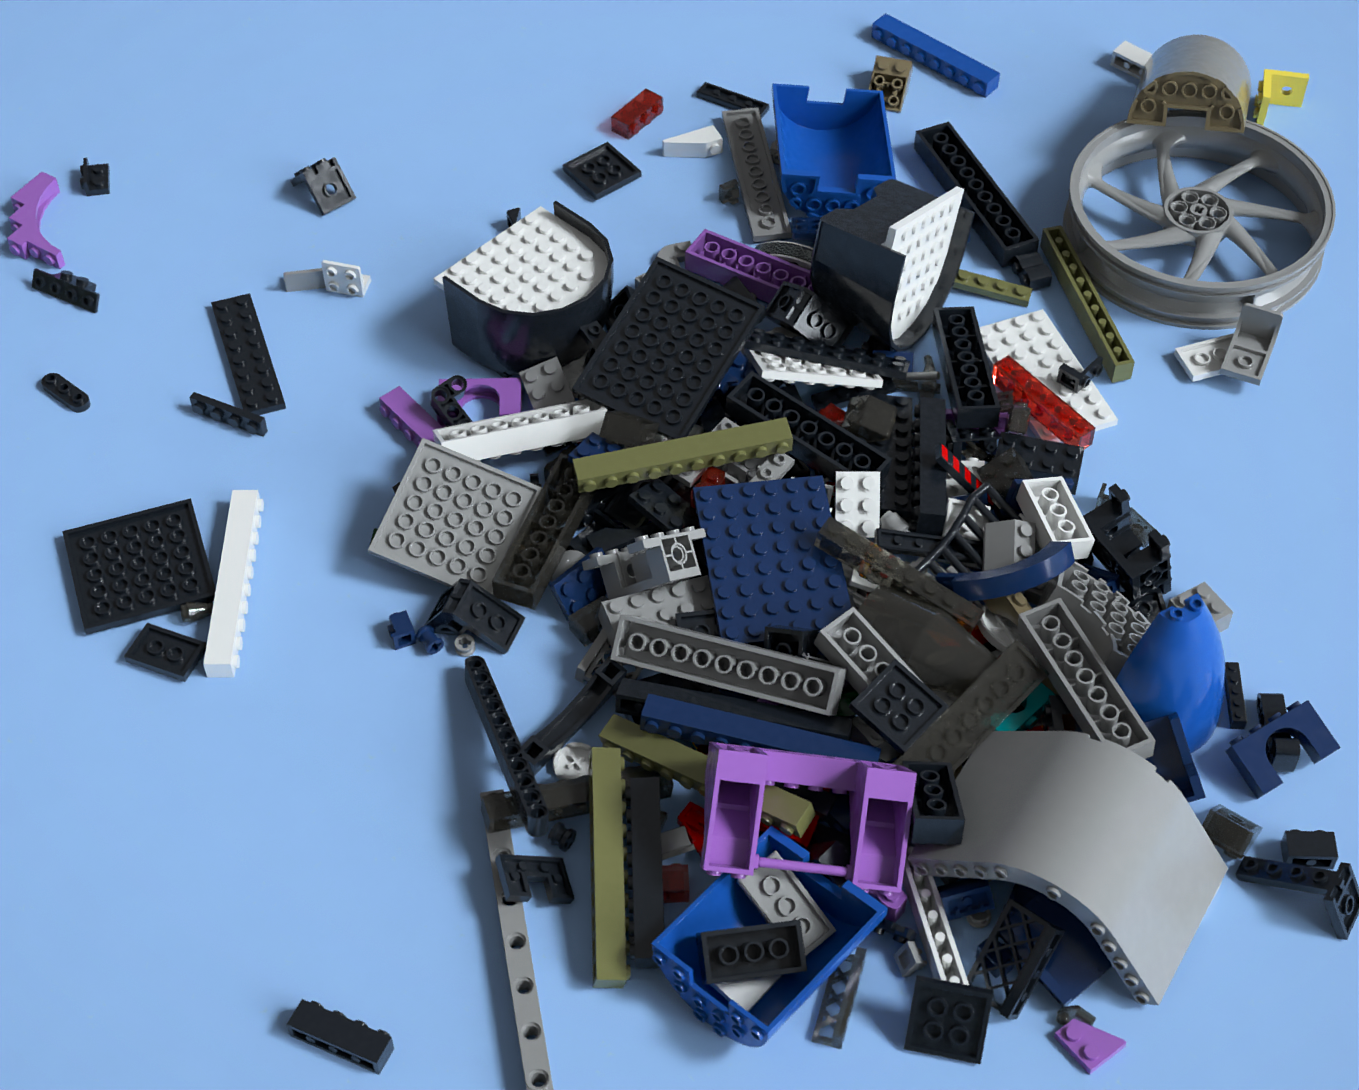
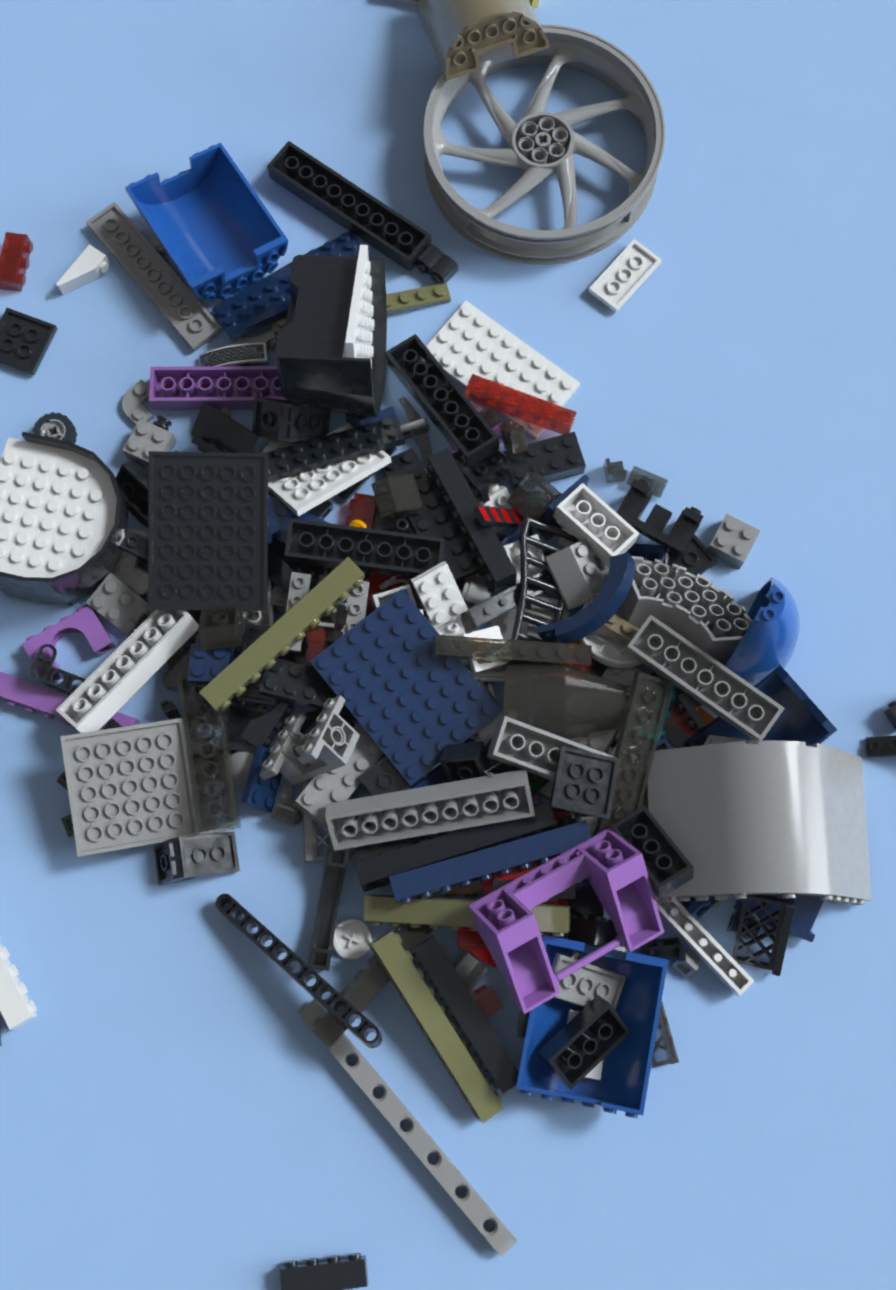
camera: 30 degrees left, 25 degrees up
(401, 630) = (143, 900): dark blue brick -> none
(429, 639) = (172, 896): dark blue bush -> none
(465, 639) = (200, 889): light grey bush -> none
(518, 870) = (370, 1069): black plate -> none
(561, 836) = (381, 1011): black wheel -> none
(729, 192) = (144, 309): clear smoke tile -> none
(730, 99) = (84, 201): black tile -> none
(893, 79) = (211, 118): dark tan slope -> none
(935, 55) = (231, 63): blue brick -> none
(948, 1019) = (745, 1006): black plate -> none
(1067, 1013) = (820, 938): clear smoke arm -> none
(1074, 379) = (530, 366): black bracket -> none
(1087, 304) = (498, 278): olive brick -> none
(1088, 1044) = (839, 957): medium lavender wing -> none
(1230, 831) = (851, 723): clear smoke slope -> none
(1235, 696) = (804, 616): black piece -> none
(1252, 343) = (649, 260): light grey bracket -> none
(1281, 749) = (838, 619): black beam -> none
(1299, 722) = (832, 649): dark blue arch -> none

